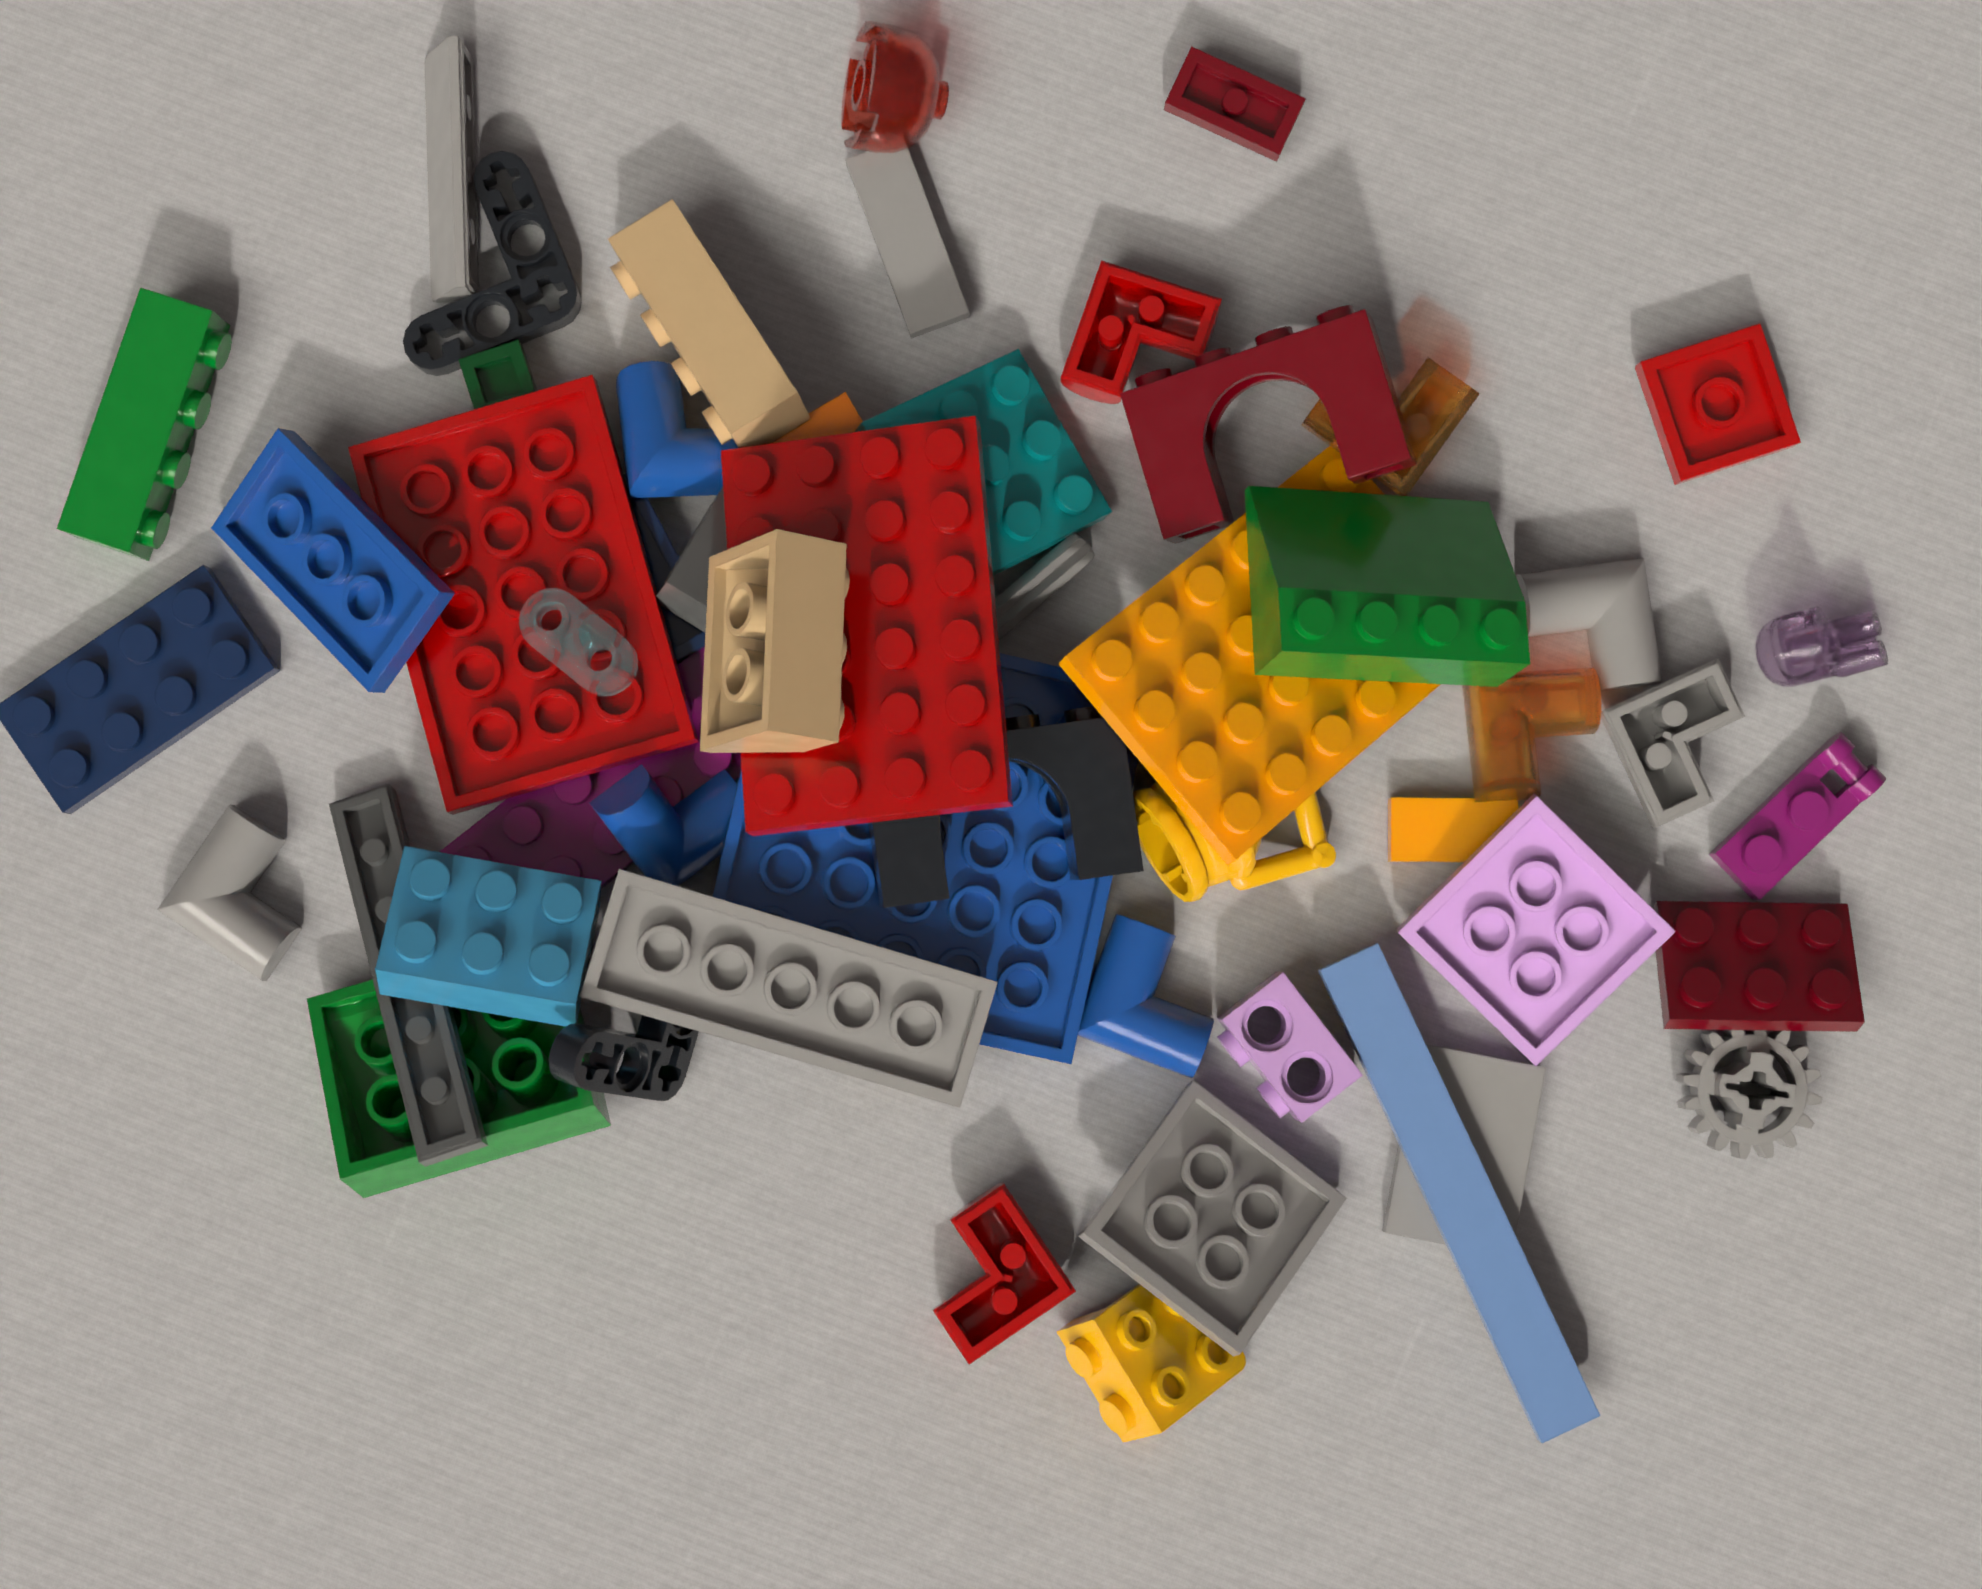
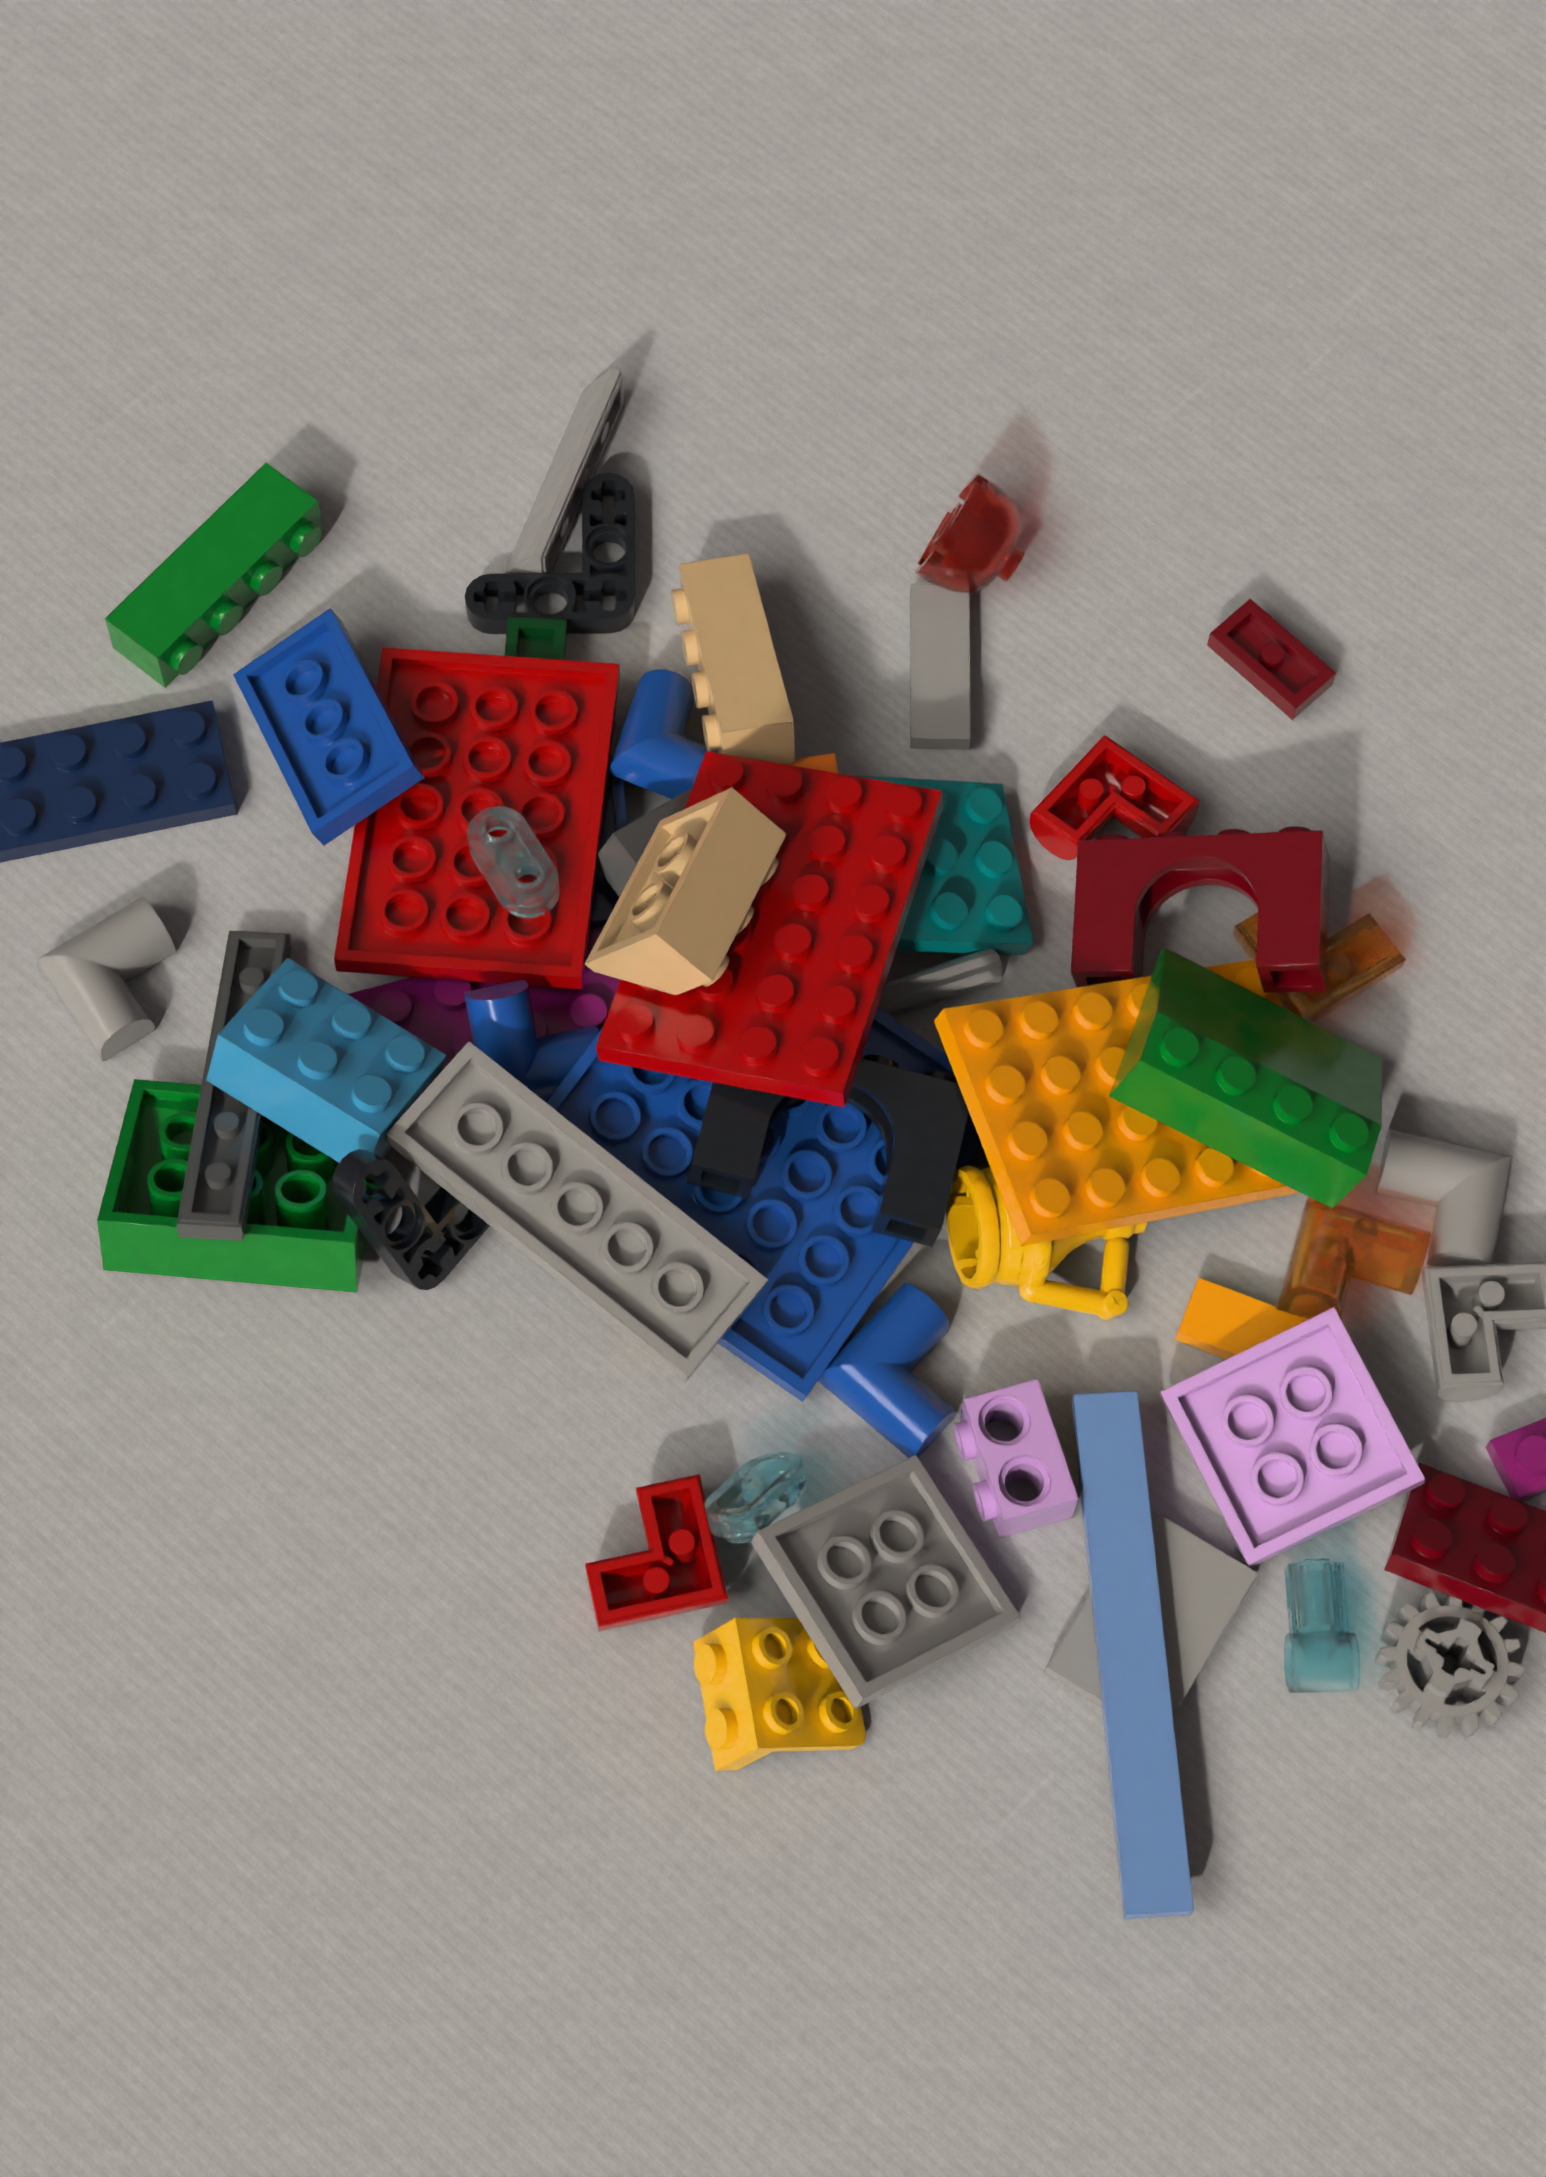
camera: 20 degrees right, 20 degrees down
(1058, 1191) = (755, 1496): none -> clear light blue plate
(1626, 1117) = (1319, 1647): none -> clear light blue piece

